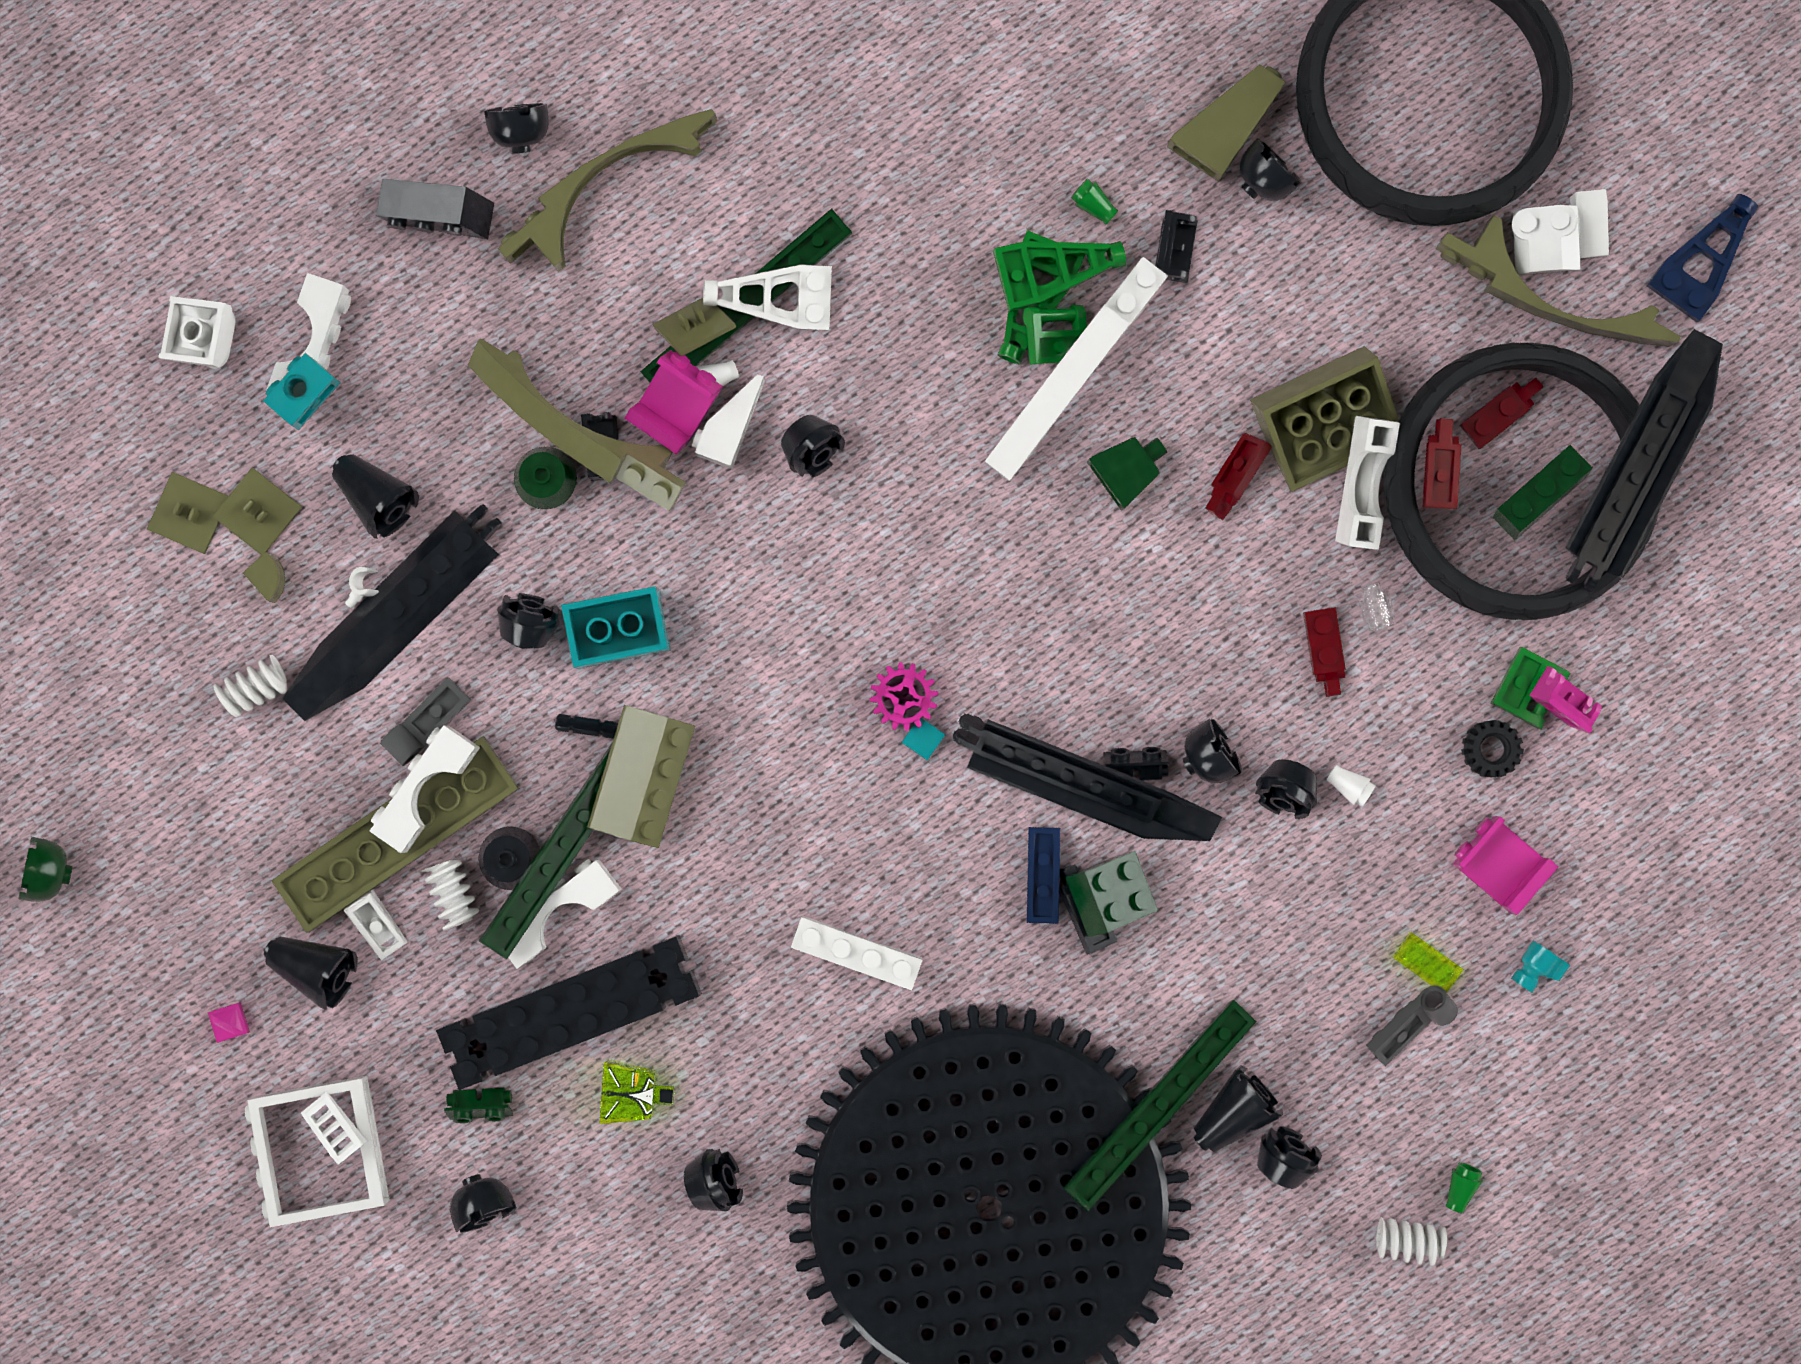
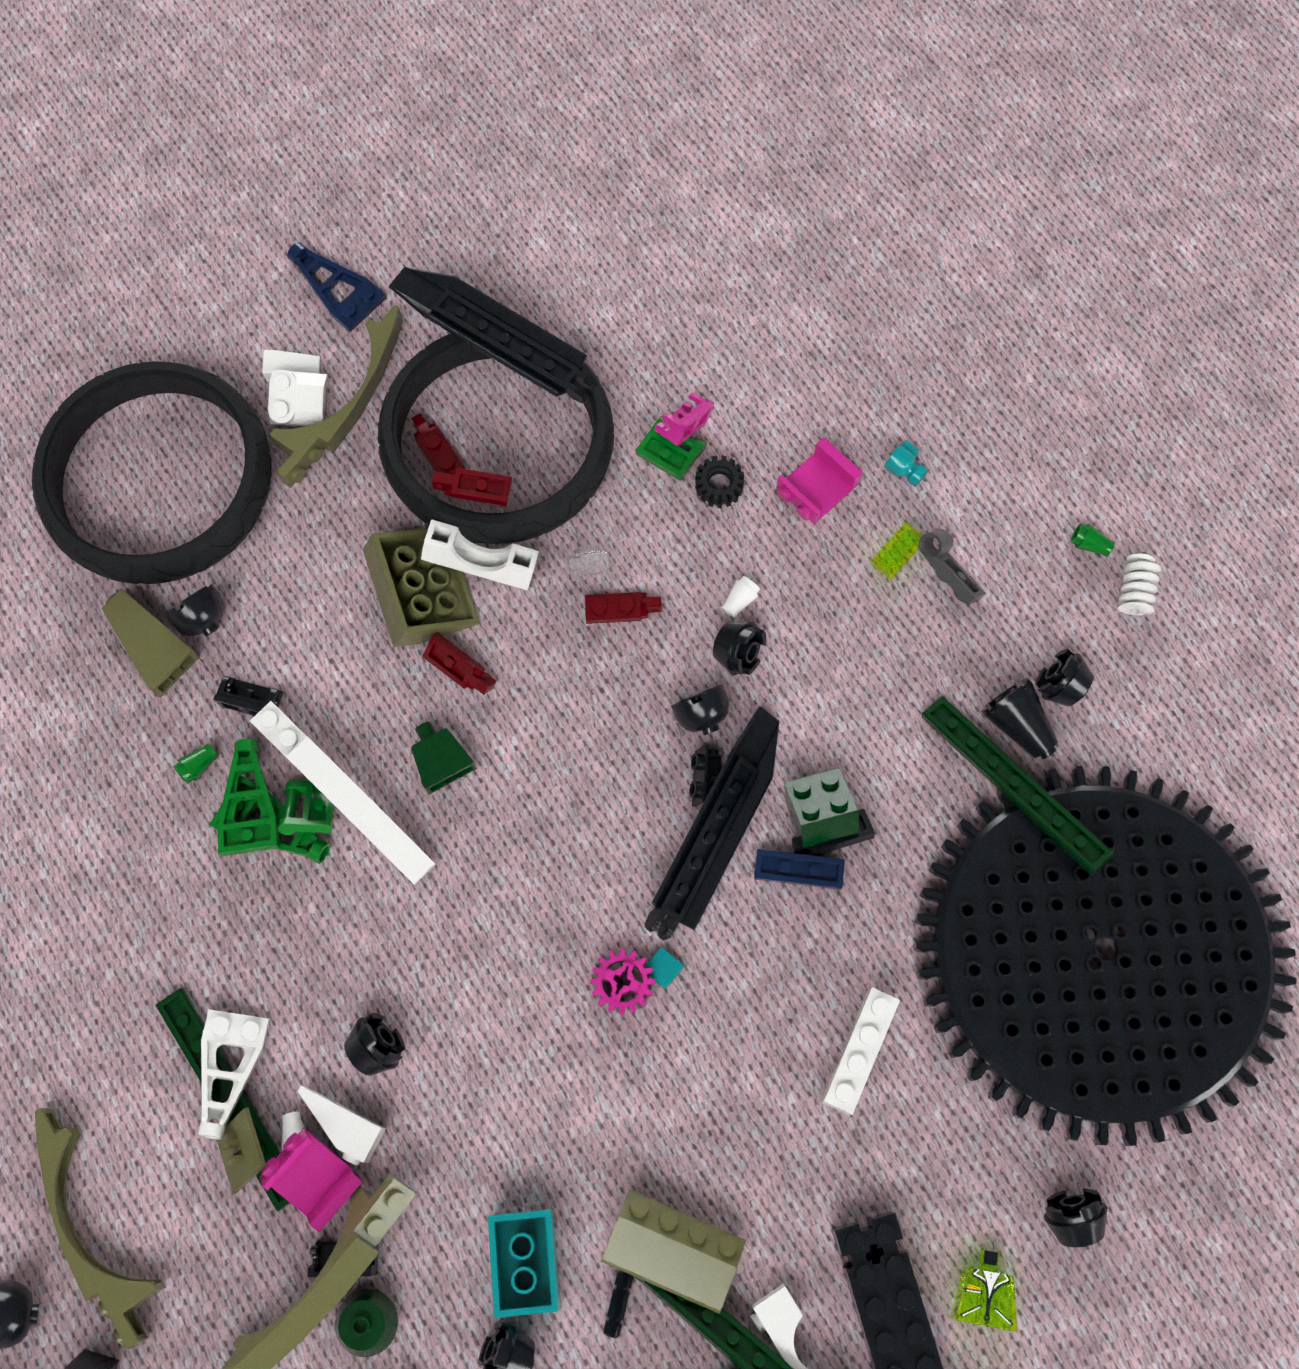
camera: 80 degrees left, 15 degrees down
(1542, 492) = (507, 410): dark green brick -> none

